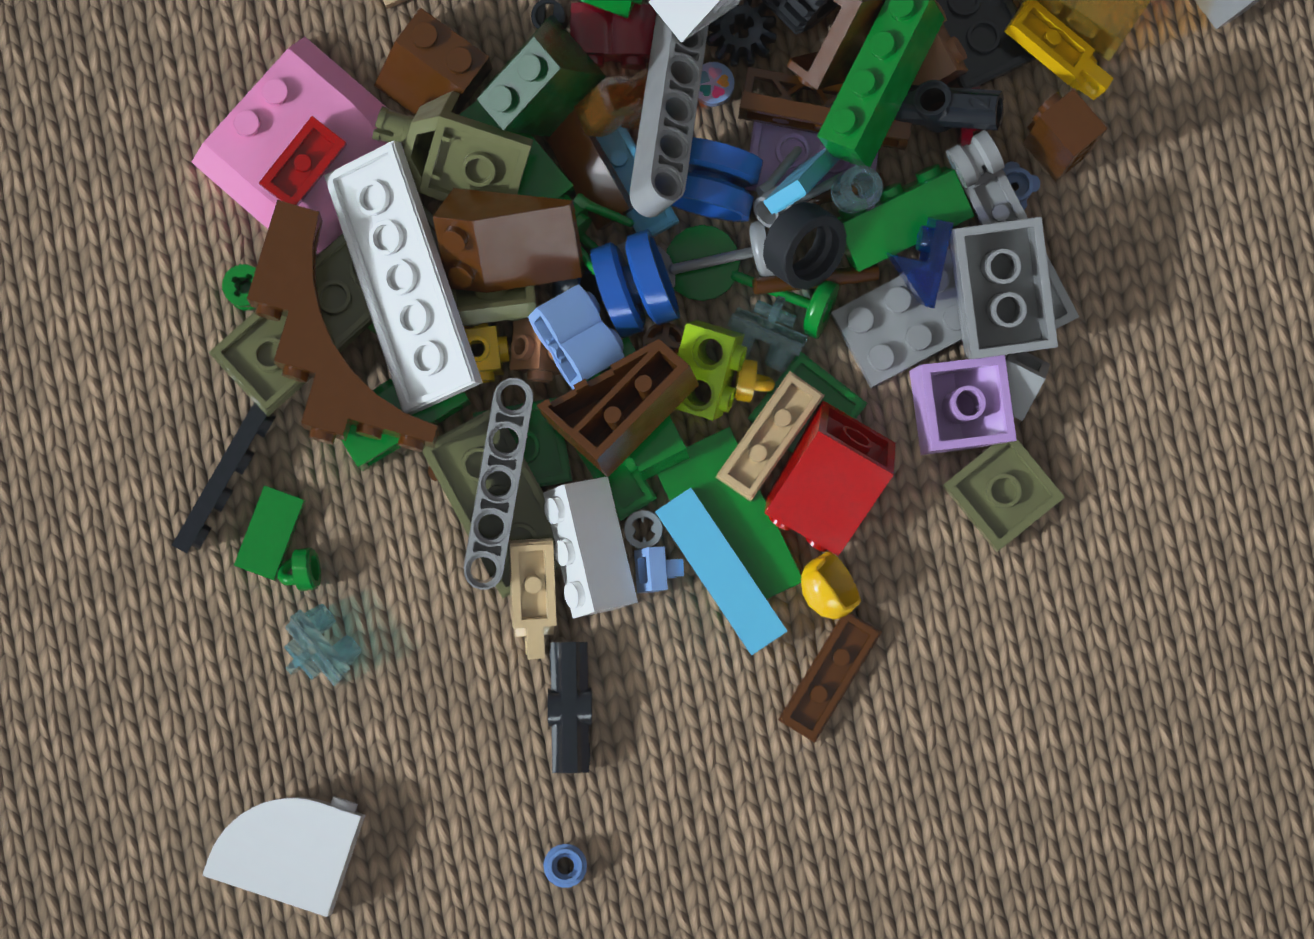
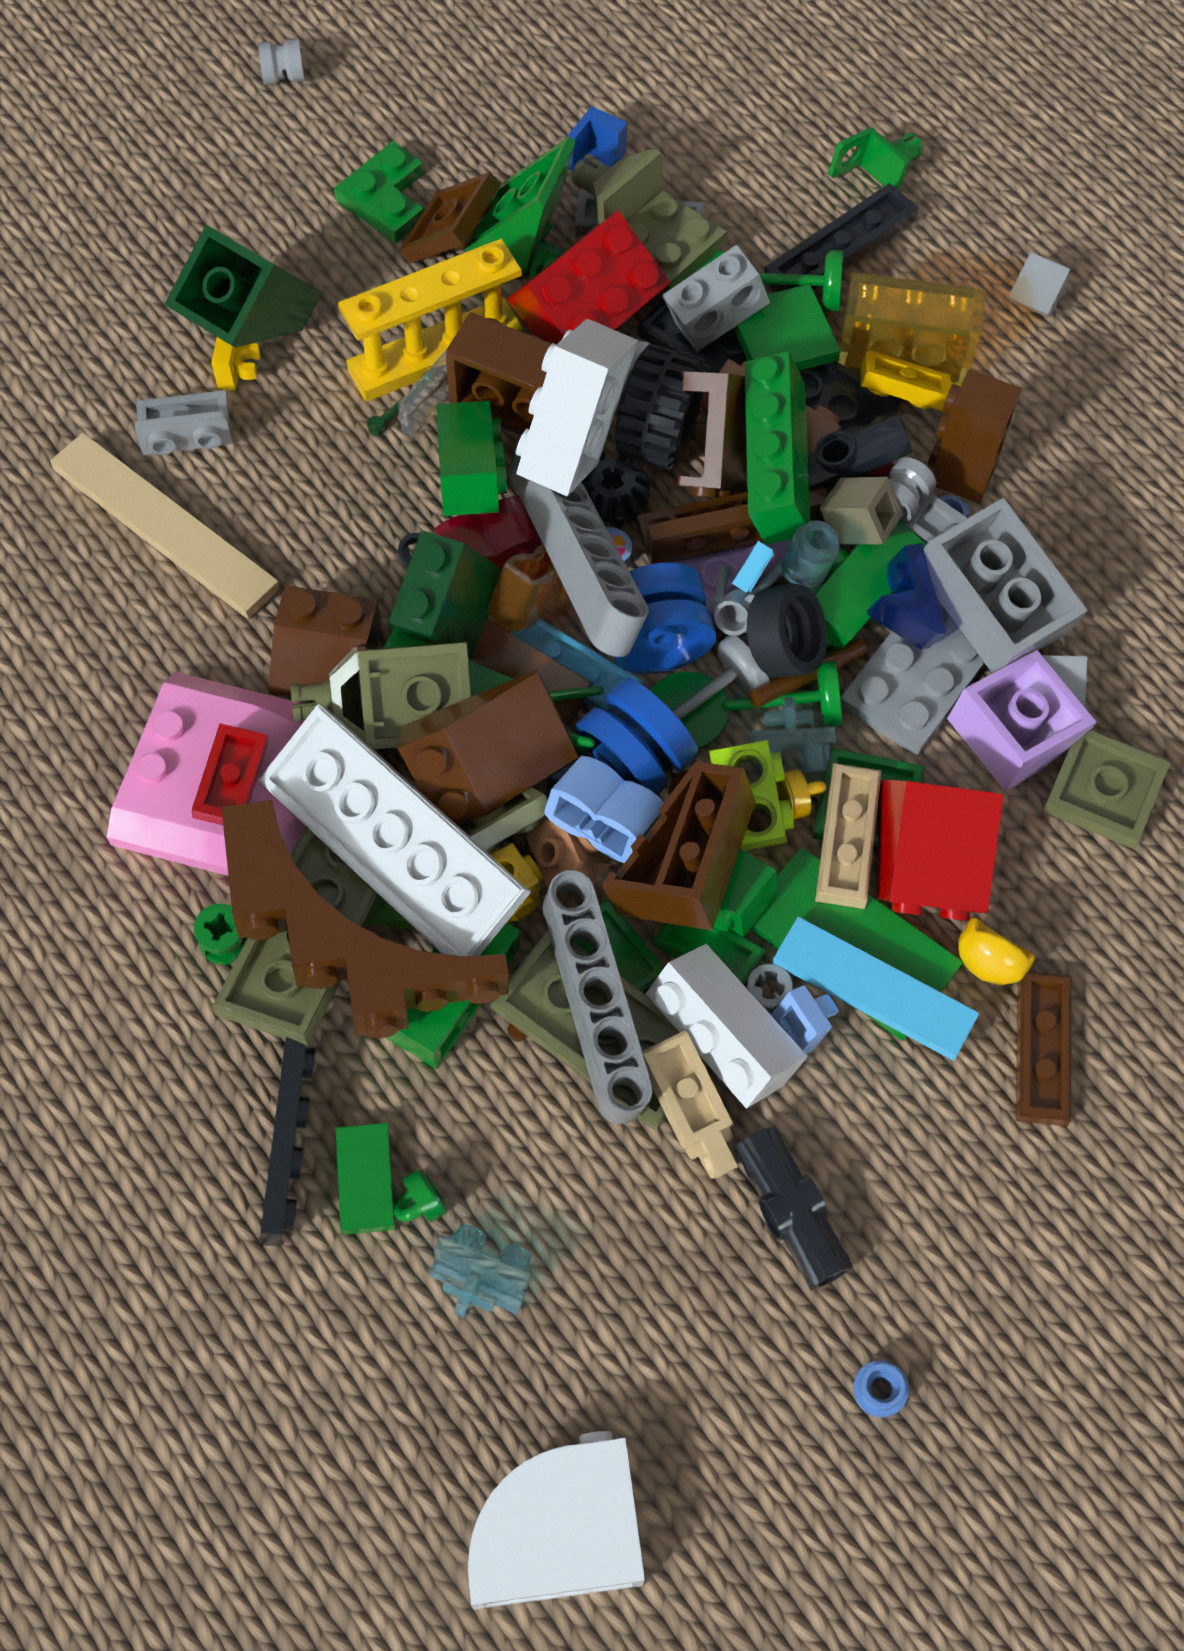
camera: 30 degrees left, 20 degrees down
(924, 165) = (862, 510): none -> dark tan brick

